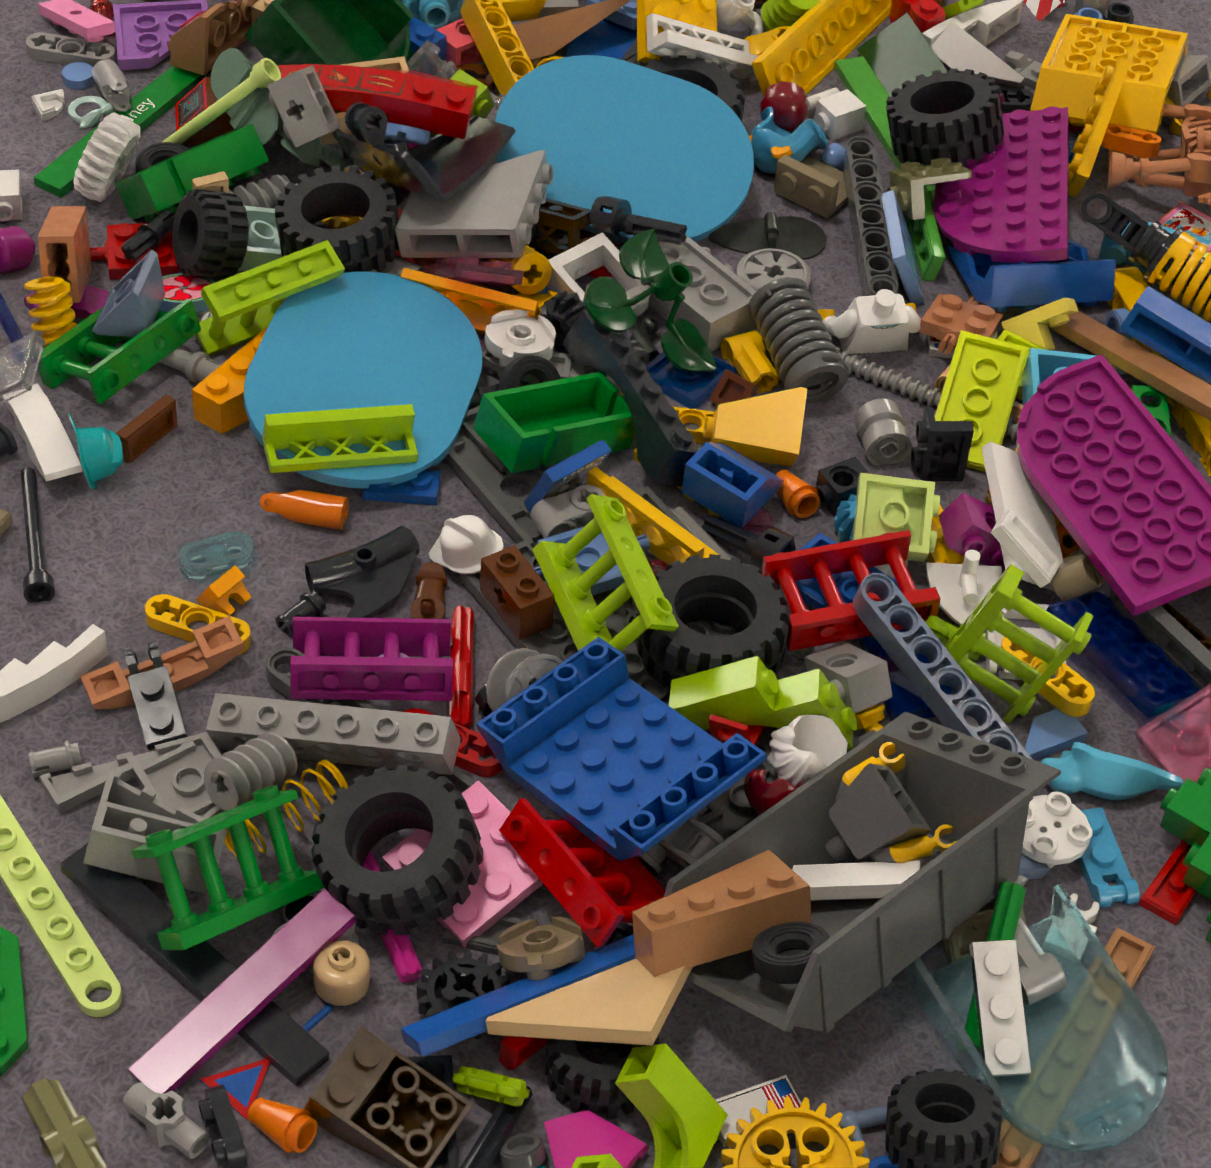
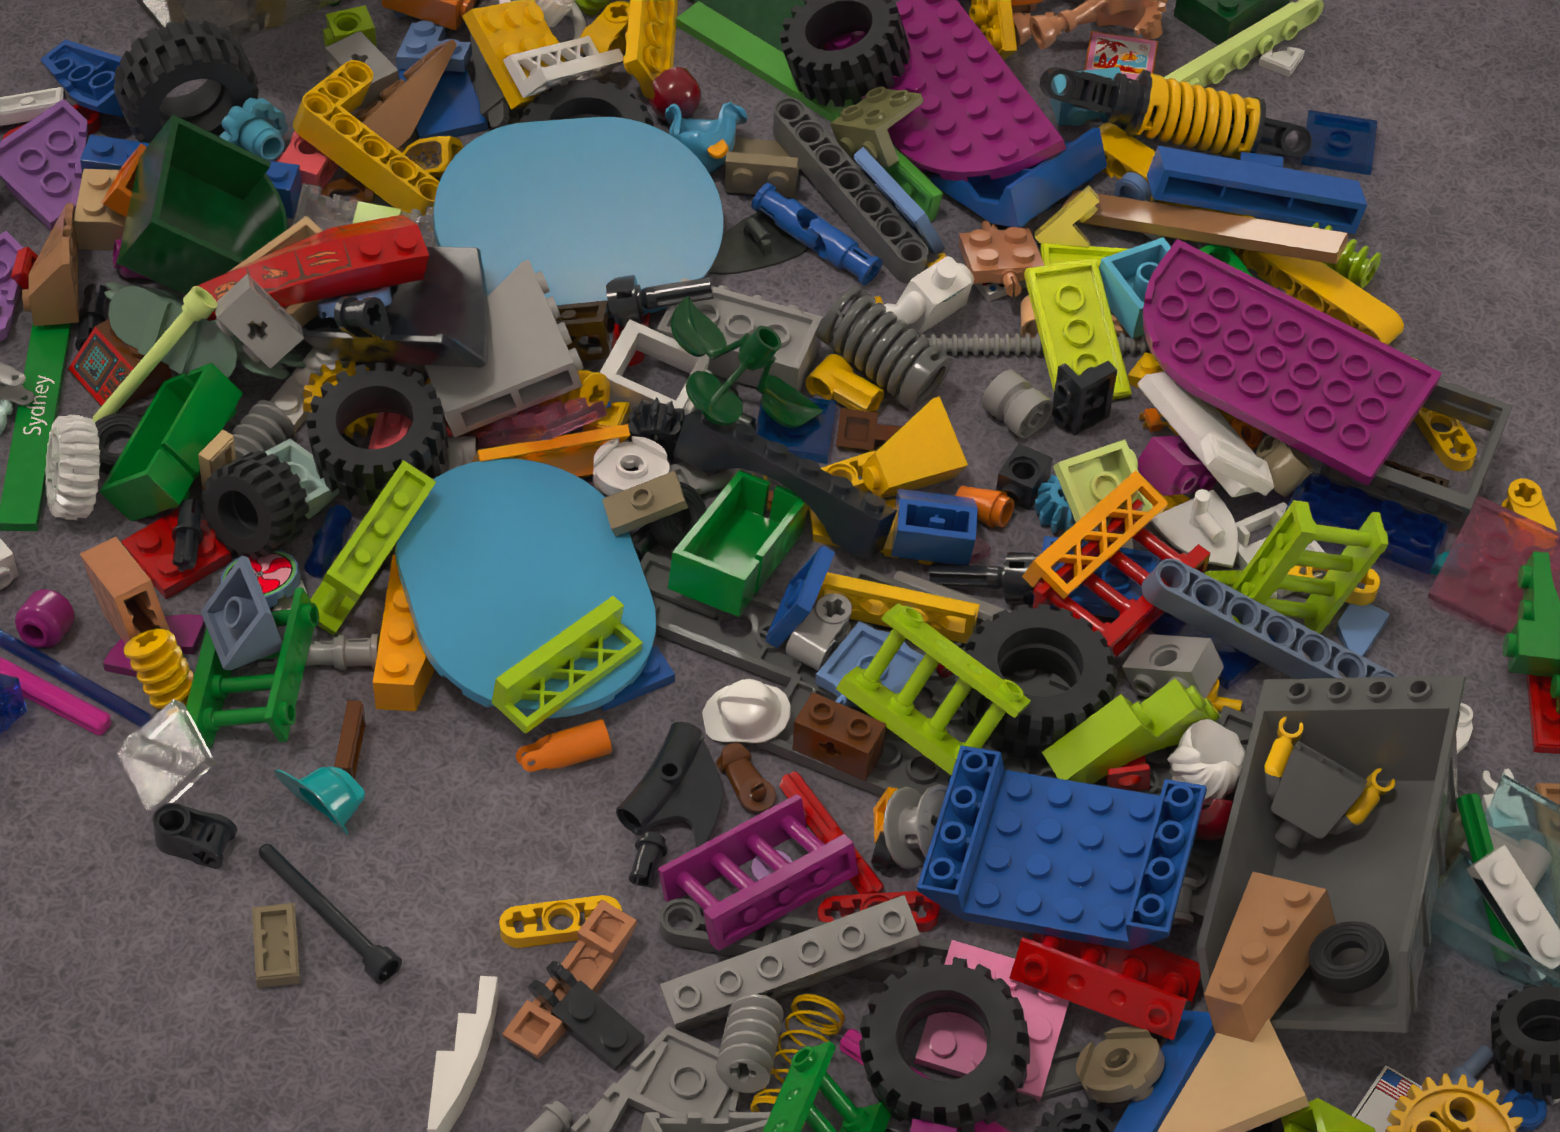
camera: 30 degrees left, 5 degrees up
(43, 434) = (259, 806): white slope -> none
(213, 555) = (519, 843): clear light blue plate -> none
(225, 587) = (557, 875): light orange tile -> none
(501, 359) = (645, 503): none -> dark tan plate
(772, 264) = (813, 275): light grey wheel -> none
(818, 246) = (820, 236): none -> blue piece
(834, 156) = (756, 127): medium blue hinge -> none
(837, 112) = (724, 78): white brick -> none
(849, 530) = (1086, 529): none -> light orange fence
(855, 879) = (1339, 854): white tile -> none
(1104, 863) = (1490, 730): dark azure plate -> none
(1107, 774) = (1434, 647): medium azure animal -> none

